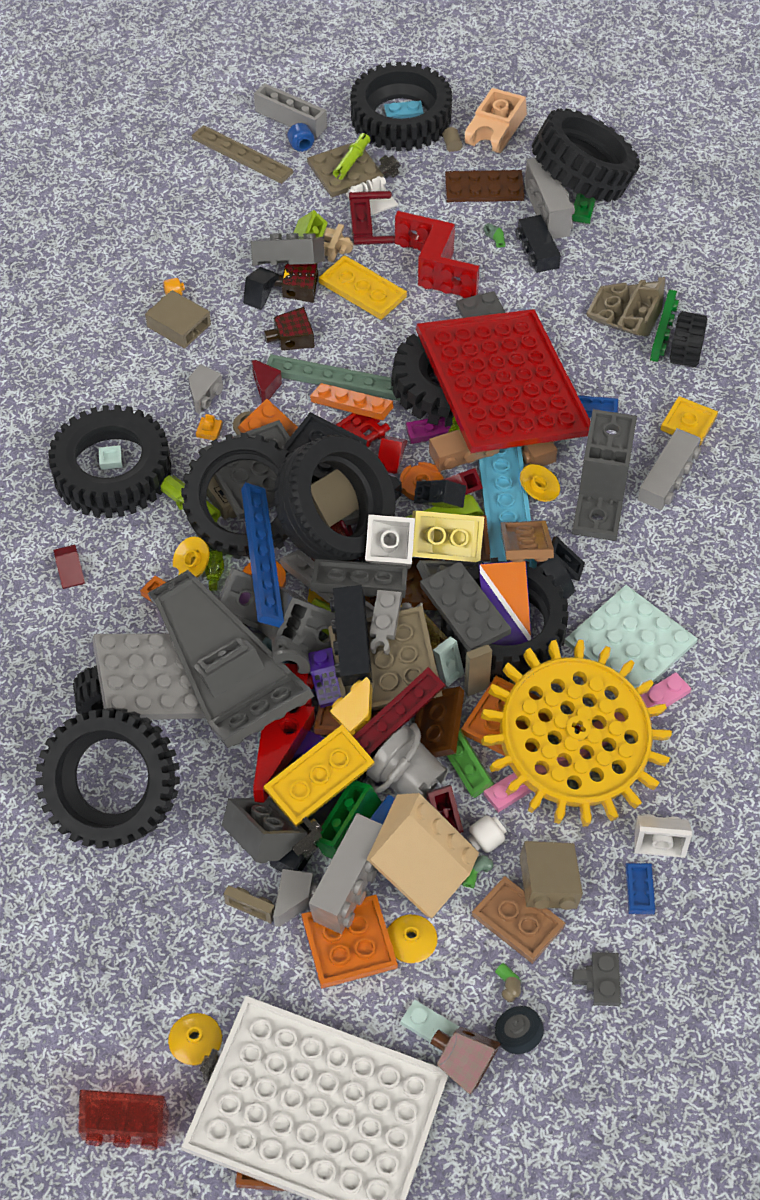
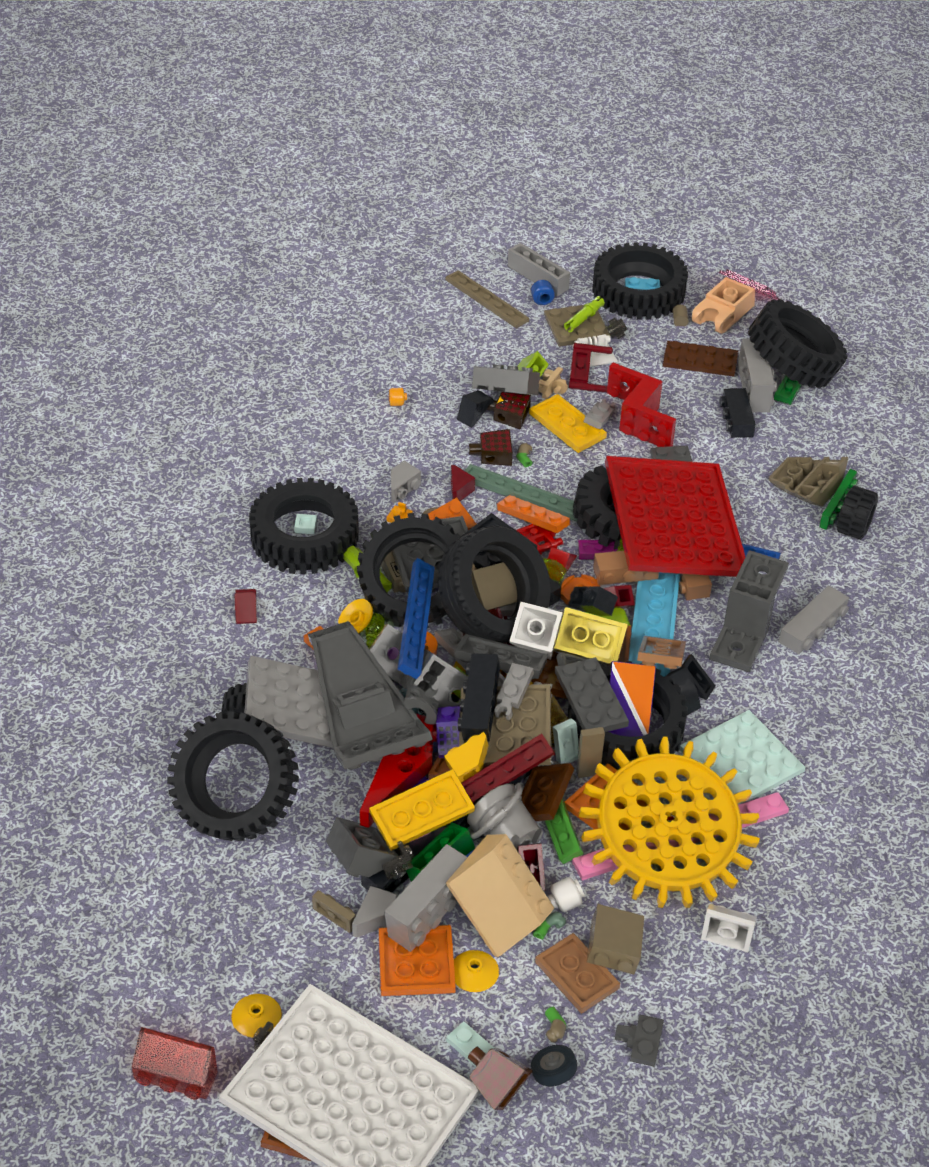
camera: 10 degrees right, 10 degrees down
(178, 319) = (394, 422): dark tan brick -> none
(323, 332) = (522, 453): none -> arm
(391, 462) = (555, 569): none -> clear neon green piece
(394, 271) = (599, 414): none -> light grey plate
(496, 234) = (701, 399): arm -> none
(517, 90) = (760, 288): none -> clear pink piece
(539, 483) = (689, 610): yellow dish -> none
(640, 888) = (698, 969): blue plate -> none
(690, 418) = (845, 580): yellow plate -> none

